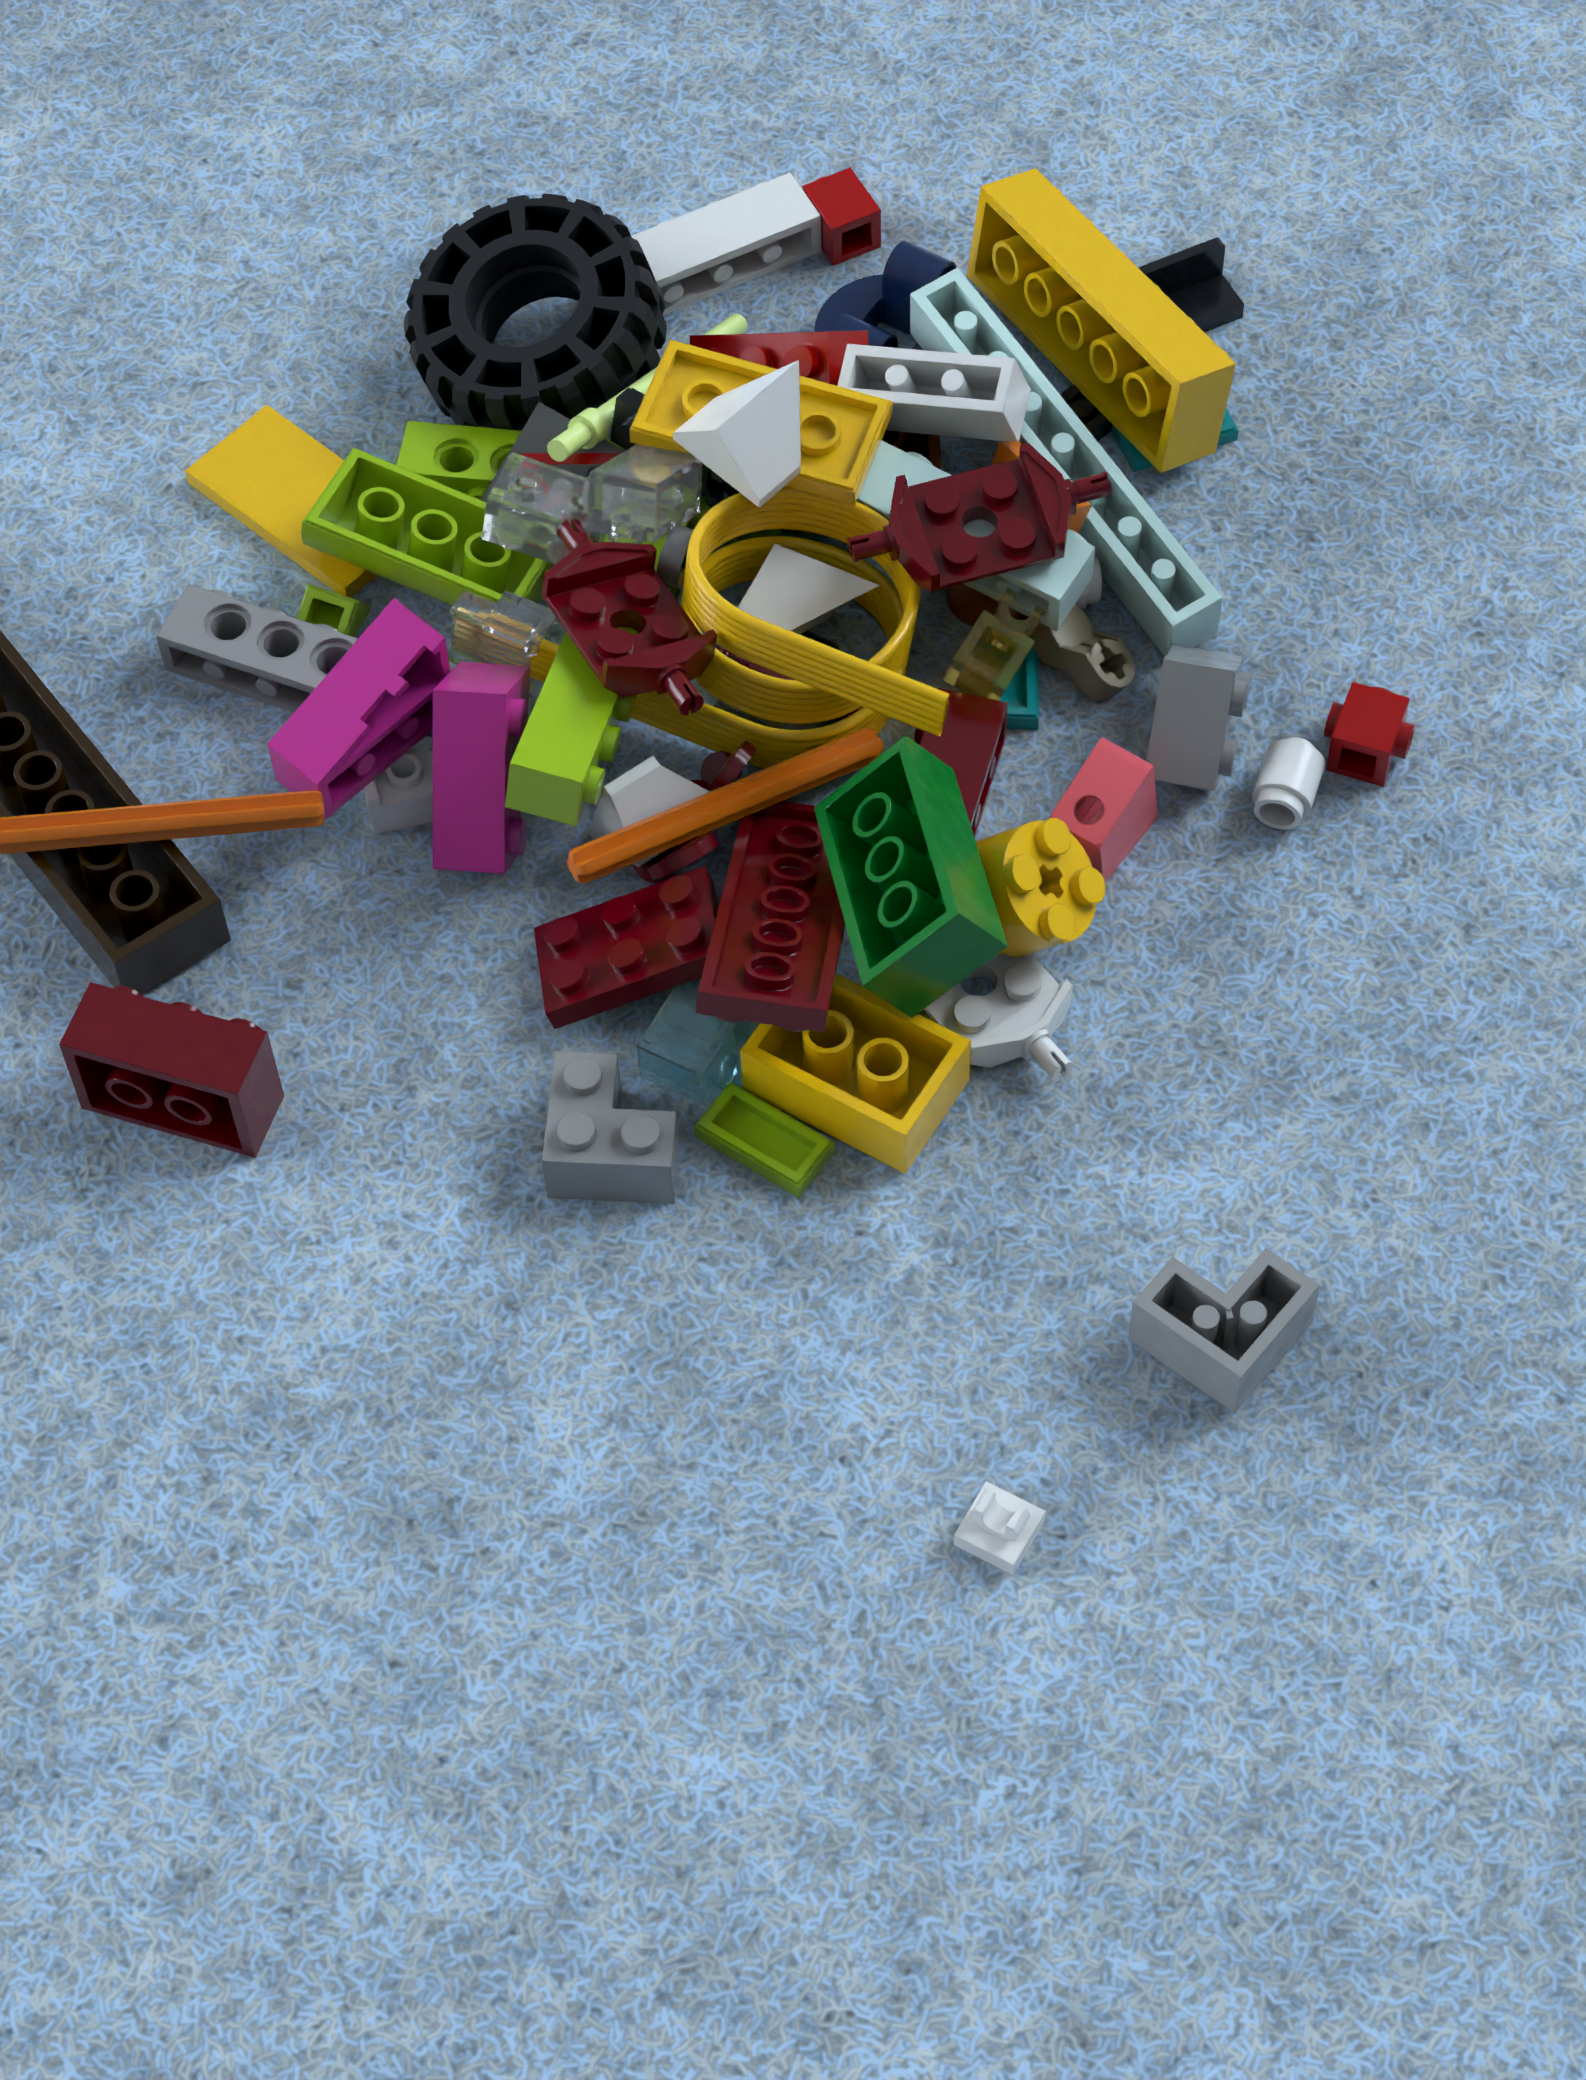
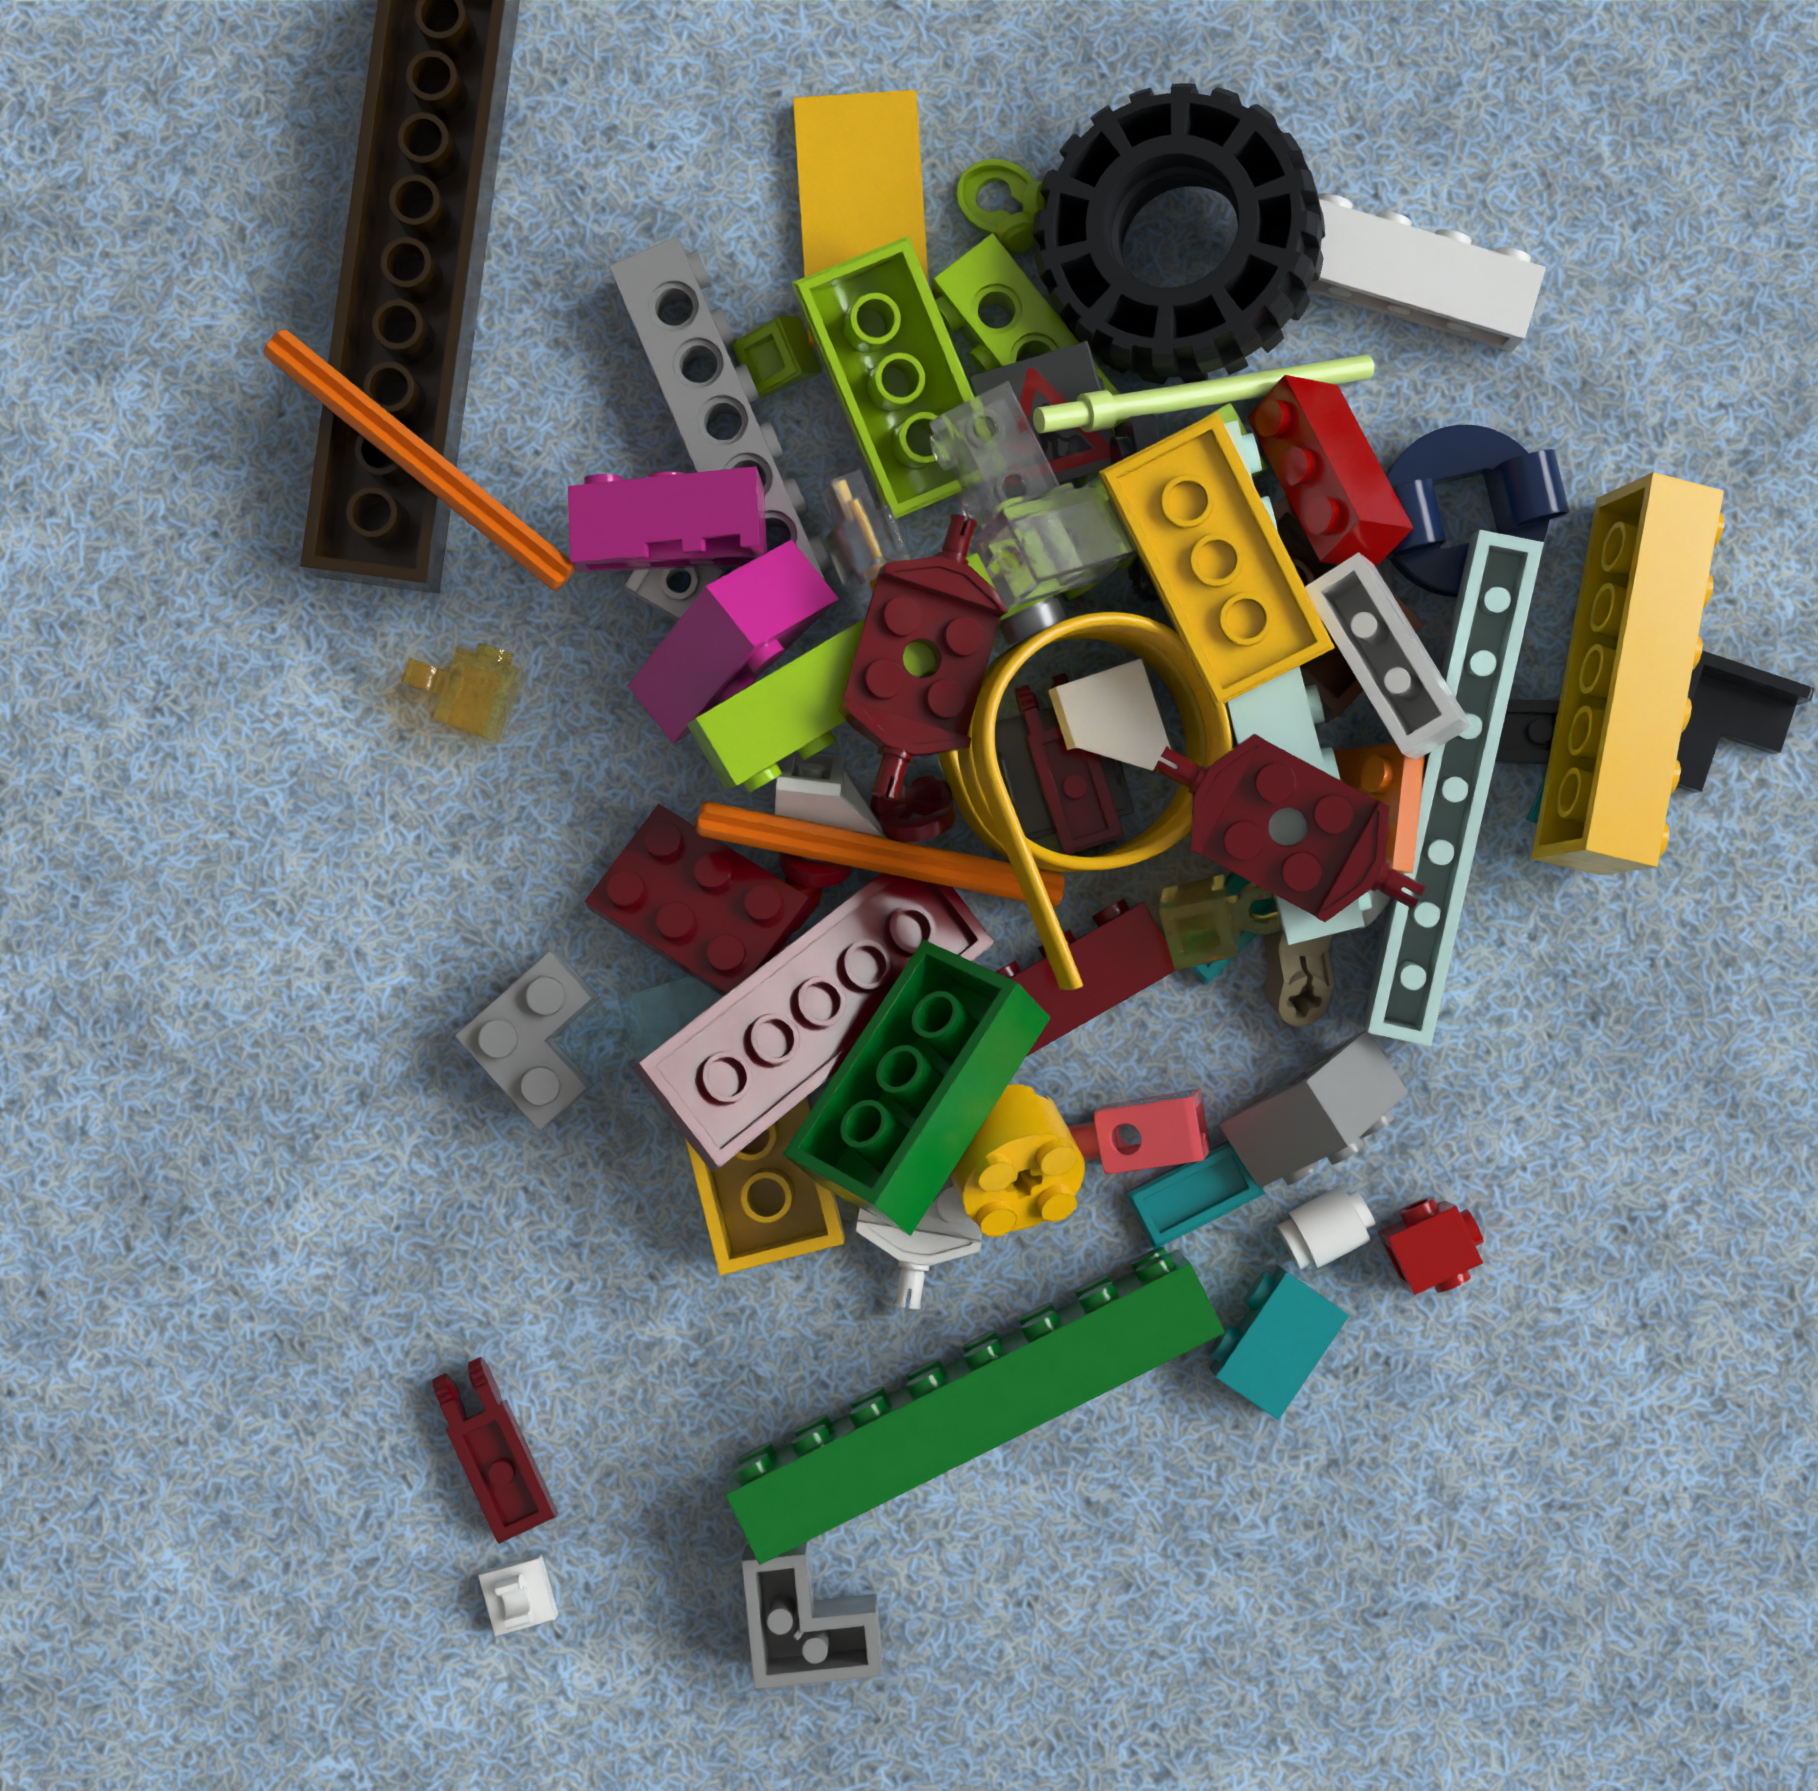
camera: 45 degrees right, 30 degrees up
(173, 1068) = (274, 692): dark red brick -> none
(322, 966) = (474, 693): none -> clear yellow brick
(397, 401) = (1012, 230): none -> lime piece
(750, 434) = (1178, 580): white slope -> none
(764, 1139) = (653, 1149): lime tile -> none
(847, 216) = (1554, 342): red brick -> none
(873, 1440) = (495, 1456): none -> dark red hinge
(1172, 1075) = (971, 1403): none -> green brick
(1177, 847) = (1192, 1195): none -> teal tile
(1337, 873) = (1276, 1341): none -> teal brick

